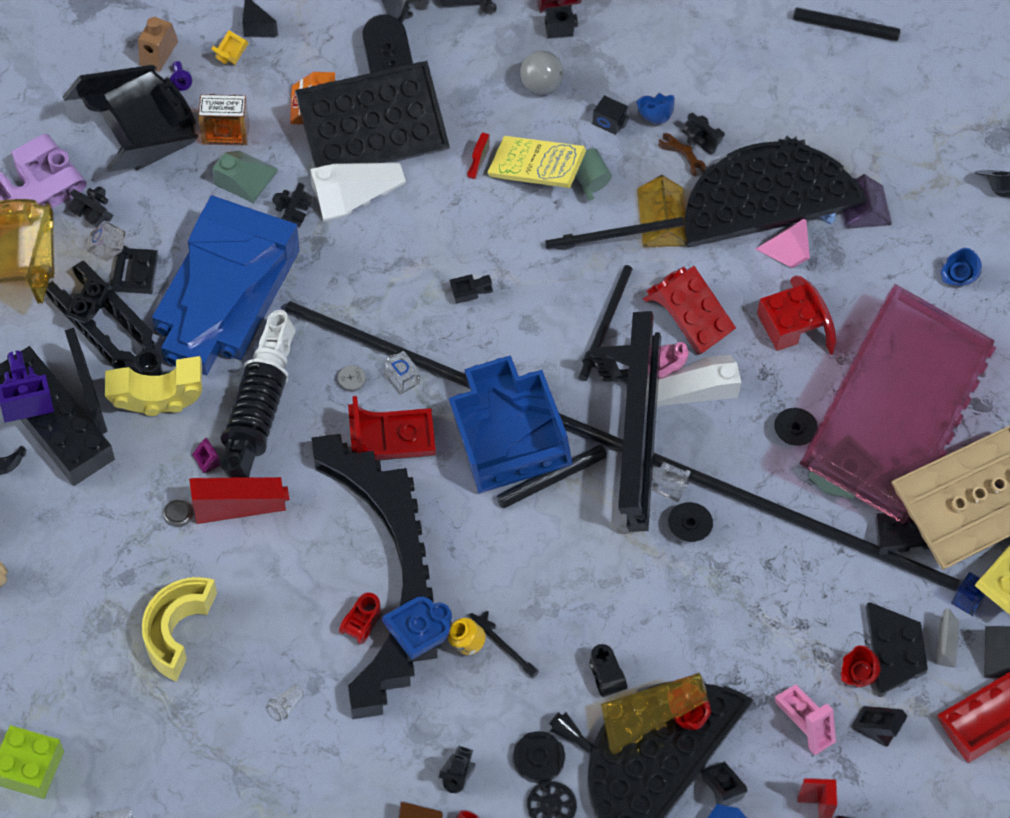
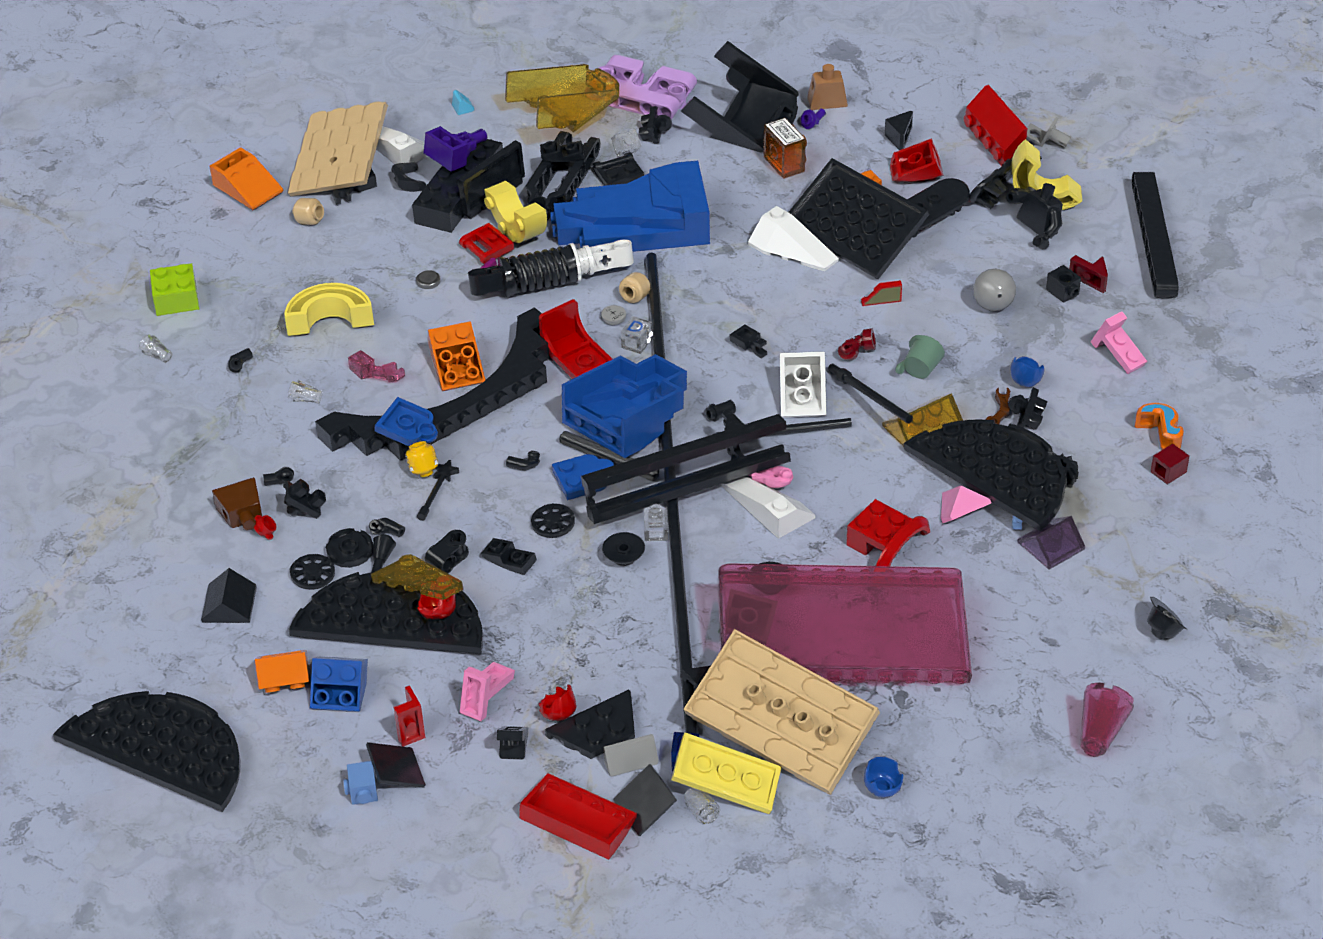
camera: 65 degrees right, 15 degrees down
(163, 428) = (491, 239): none -> red plate
(184, 747) = (236, 361): none -> black arm
(230, 48) = (860, 130): yellow bracket -> none
(236, 497) = (454, 292): red slope -> none
(242, 175) = (751, 183): sand green slope -> none
(293, 624) = (365, 367): none -> clear pink piece
(298, 198) = (741, 216): black hips -> none
(317, 35) = (916, 163): none -> red slope
(326, 540) = (455, 356): none -> orange slope
(331, 341) = (634, 287): none -> tan head
(359, 622) = (409, 394): red piece -> none
(395, 782) = (279, 477): none -> black arm
(517, 550) = (526, 463): none -> black arm
(530, 709) = (386, 525): none -> black arm
(535, 199) = (850, 348): none -> dark red arm
(537, 161) = (899, 321): light yellow tile -> none
(550, 360) = (714, 411): none -> black pin
(563, 510) = (570, 471): none -> blue plate
(564, 278) = (803, 384): none -> white slope
(608, 563) = (553, 520): none -> black wheel
(610, 115) = (994, 349): black brick -> none
(637, 623) = (506, 556): none -> black slope
(663, 26) = (1119, 343): none -> bright pink bracket
(692, 307) = (834, 467): red bracket -> none
(724, 783) = (386, 658): black slope -> none
(782, 52) = (1165, 419): none -> orange animal
(829, 76) = (1170, 463): none -> dark red brick
(846, 24) = (1246, 457): black axle -> none
(962, 268) = (1035, 626): blue hair -> none

